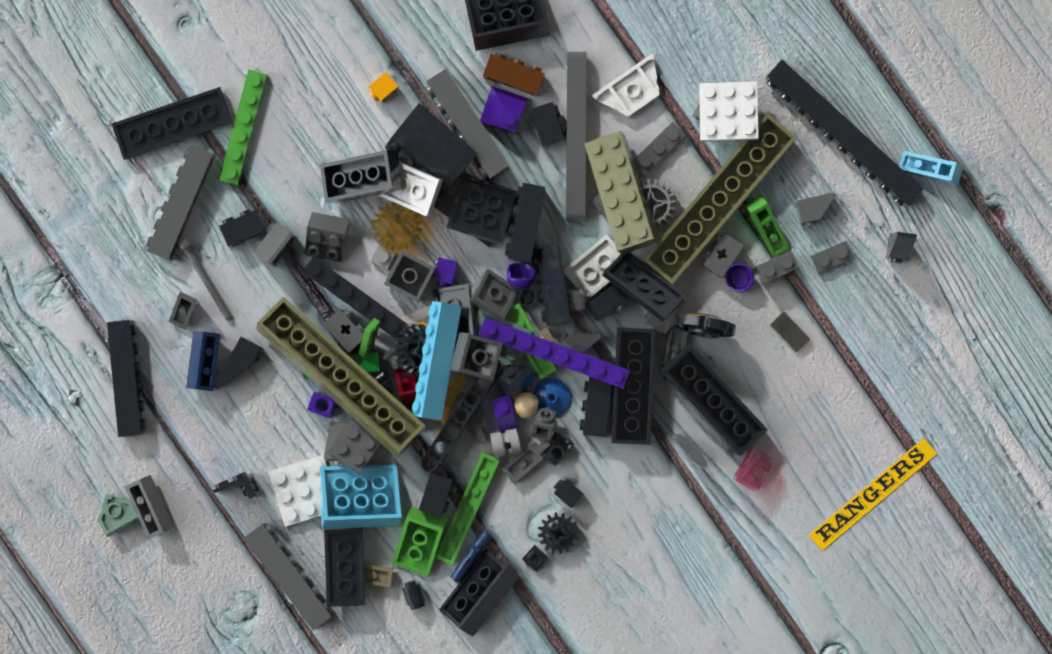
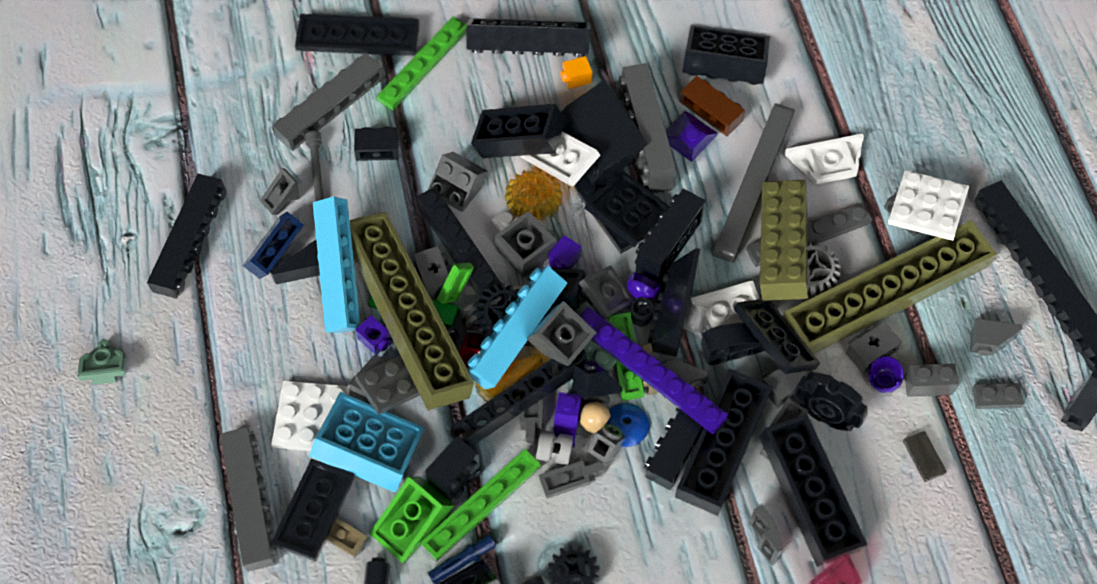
camera: 25 degrees right, 25 degrees down
(149, 506) = (139, 364): dark grey brick -> none
(248, 488) = (244, 372): black bracket -> none
(267, 363) = (336, 265): none -> medium azure brick
(274, 243) = (403, 168): slope -> none
(327, 71) = (528, 36): none -> black brick
(547, 124) = (729, 159): black brick -> none
(560, 446) = (613, 477): black plate -> none
(567, 492) = (603, 530): black brick -> none
(767, 225) = (933, 332): bright green slope -> none

